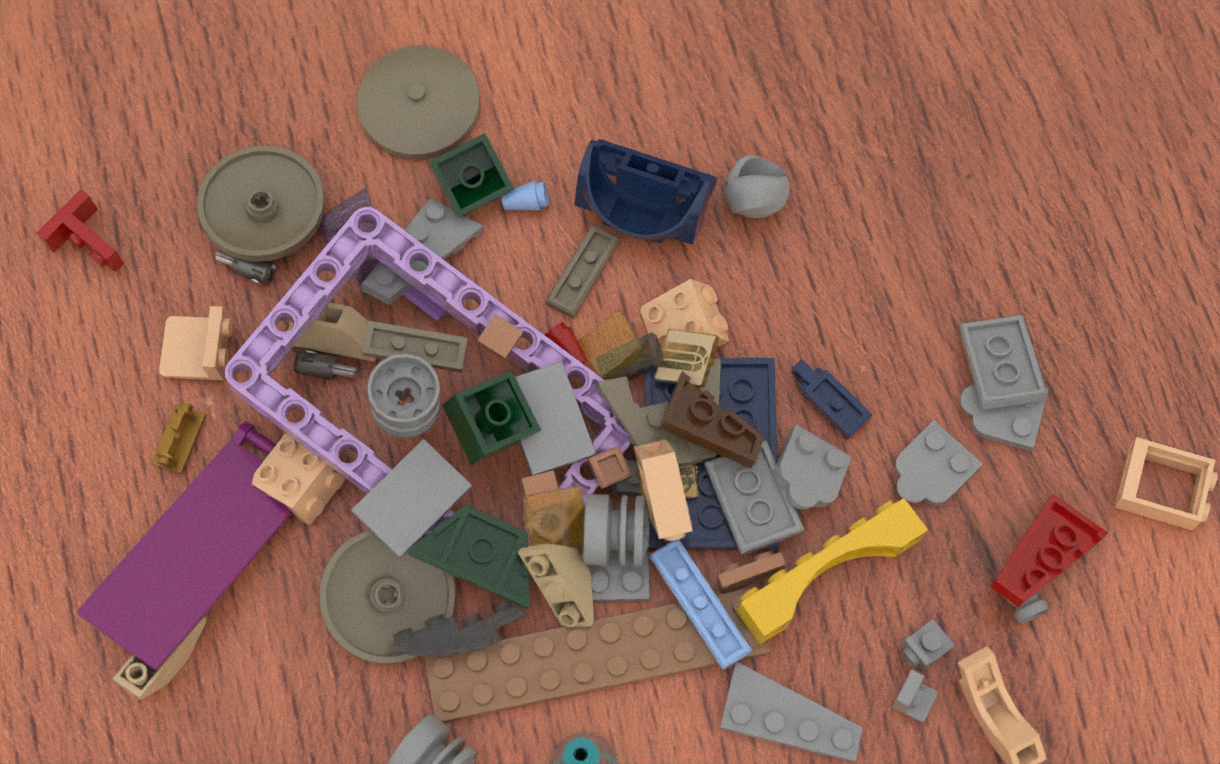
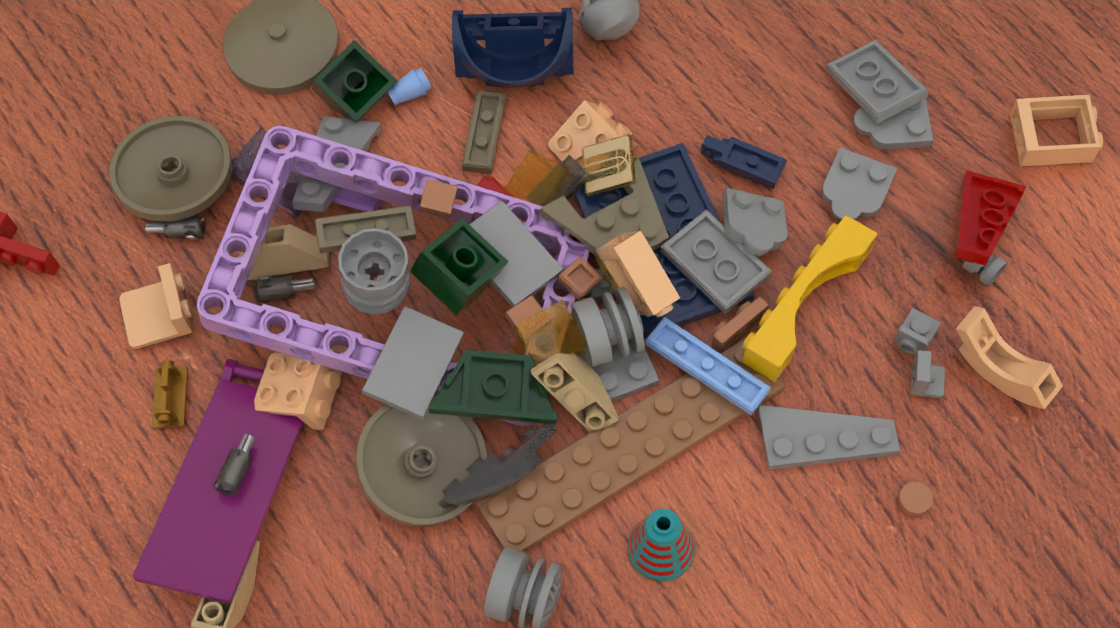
camera: 20 degrees left, 5 degrees down
(209, 538) = (235, 468): none -> clear smoke piece
(702, 421) = (645, 209): reddish brown wing -> none

